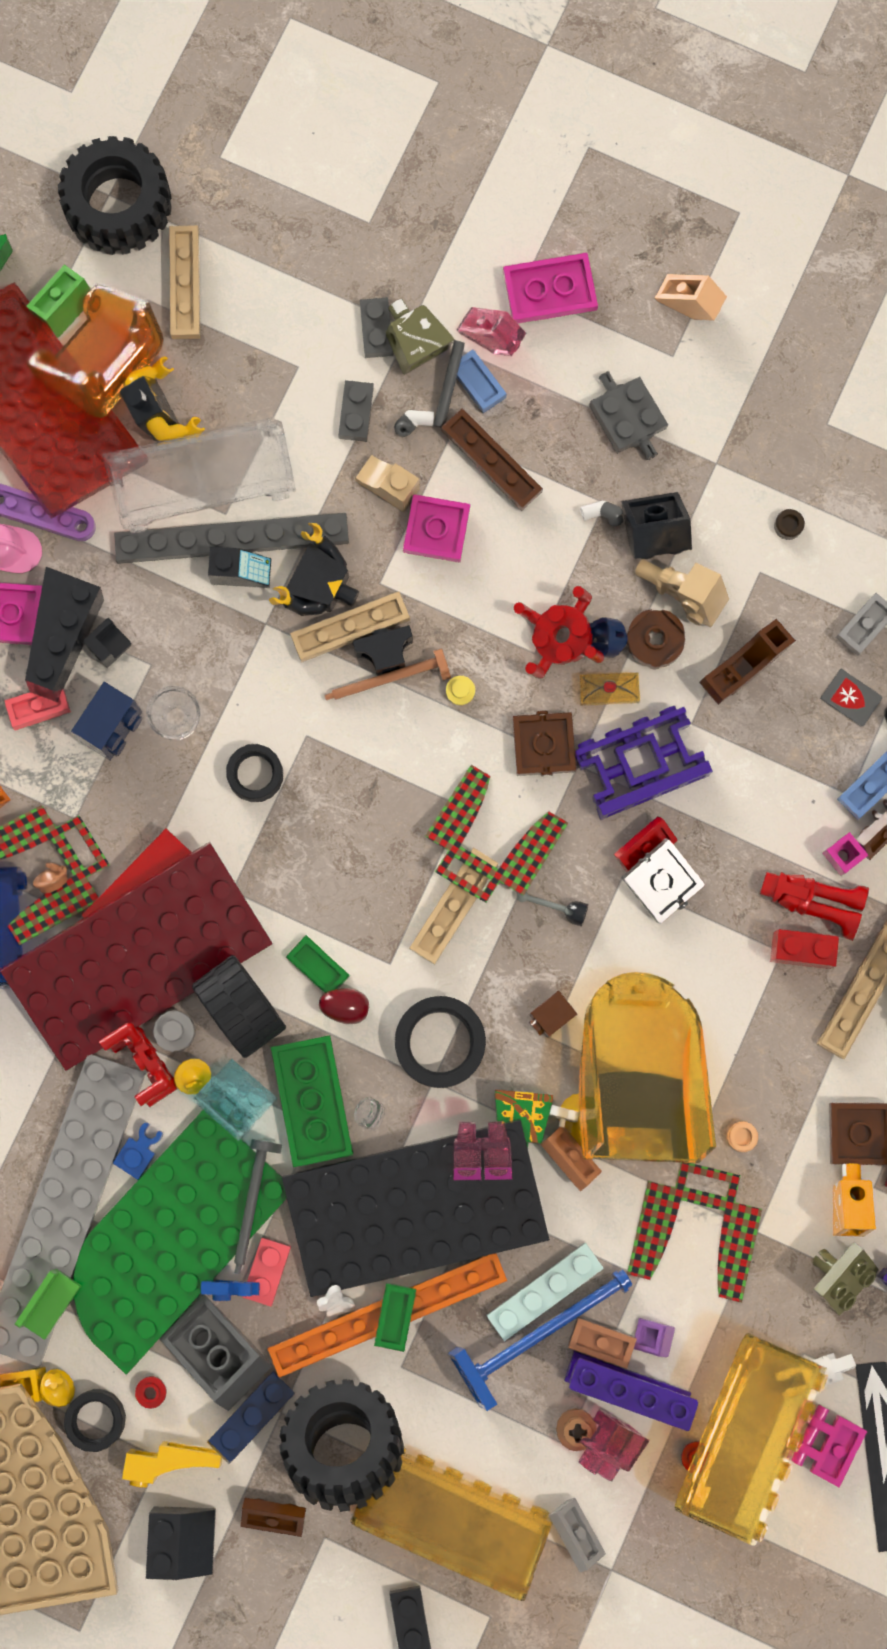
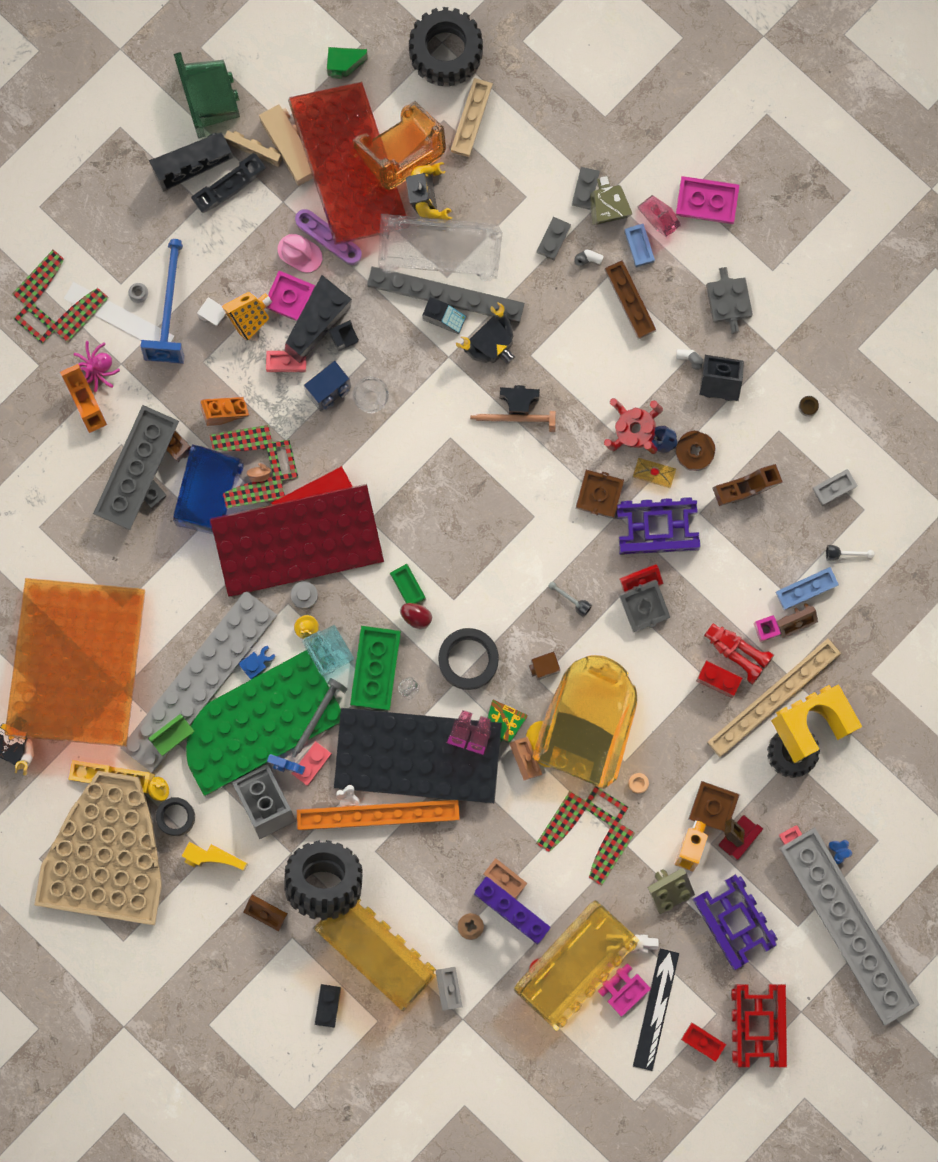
camera: 20 degrees right, 0 degrees up
(60, 300) = (387, 103): bright green panel -> none
(145, 1058) = (286, 623): red plate -> none
(159, 1387) = (208, 812): red plate -> none
(180, 1542) = (203, 908): black slope -> none
(238, 1006) = (350, 592): black tyre -> none
(244, 753) = (409, 435): black tyre -> none
(250, 1417) = (272, 847): dark blue plate -> none
(349, 626) = (501, 377): tan plate -> none
(389, 482) = (558, 292): tan arch -> none
(395, 1317) = (382, 817): green tile -> none
(436, 528) = (579, 332): dark pink plate -> none
(449, 383) = (619, 241): dark grey bar -> none
(449, 913) = (506, 577): tan plate -> none
(460, 690) = (558, 441): light yellow plate -> none
(476, 1375) = (420, 869): blue tile -> none
(521, 863) = (558, 564): piece -> none
(544, 1291) = (480, 835): light aqua plate -> none
(563, 1114) = (530, 730): white piece -> none
(611, 1446) = (488, 941): clear pink hips -> none
(654, 1337) = (538, 887): medium lavender slope -> none
(692, 296) = (797, 236): light nougat slope -> none
(700, 591) = (731, 430): tan brick -> none
(851, 697) = (809, 531): dark grey sticker -> none

